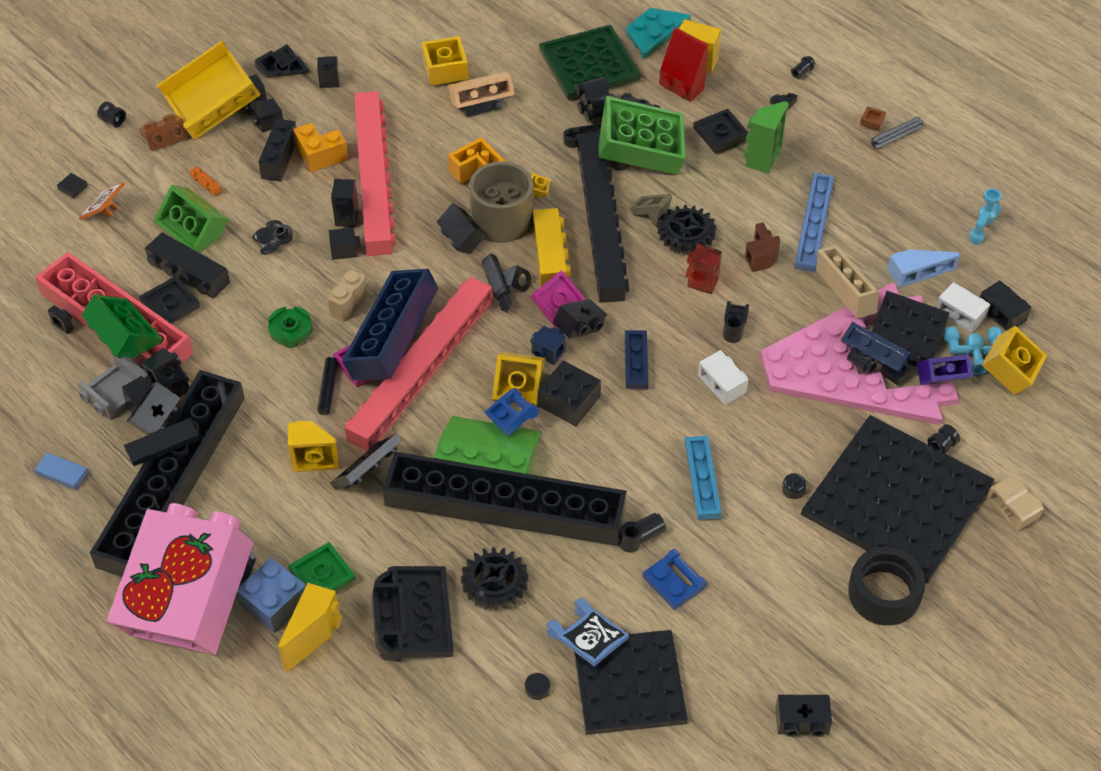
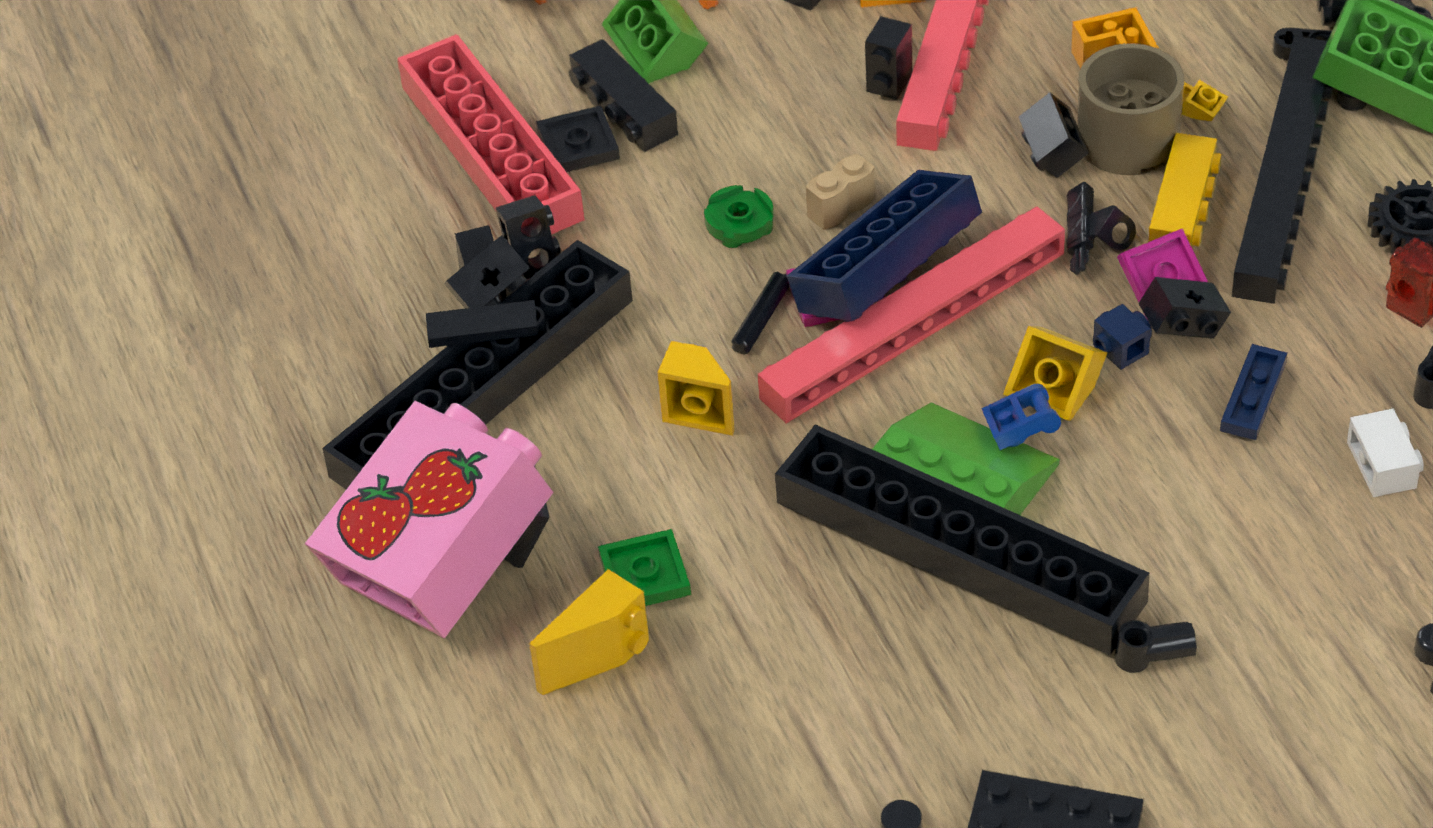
camera: 25 degrees right, 5 degrees down
(60, 319) = (415, 127): black plate -> none
(61, 471) = (334, 334): medium blue tile -> none
(106, 390) = (434, 241): light grey panel -> none
(120, 326) = (486, 150): green slope -> none
(271, 594) = (553, 573): medium blue brick -> none
(273, 236) = (766, 83): black plate -> none
(344, 243) = (866, 117): black brick -> none
(367, 462) = (770, 432): black plate -> none
(412, 613) = (753, 661): black plate -> none
(493, 585) = (899, 642): black gear -> none
(569, 393) = (1124, 413): black brick -> none
(591, 636) = (1011, 770): flag -> none
(653, 206) = (1374, 172): dark tan slope -> none
(669, 585) = (1169, 734): blue plate -> none
(702, 478) = (1287, 592): dark azure plate -> none

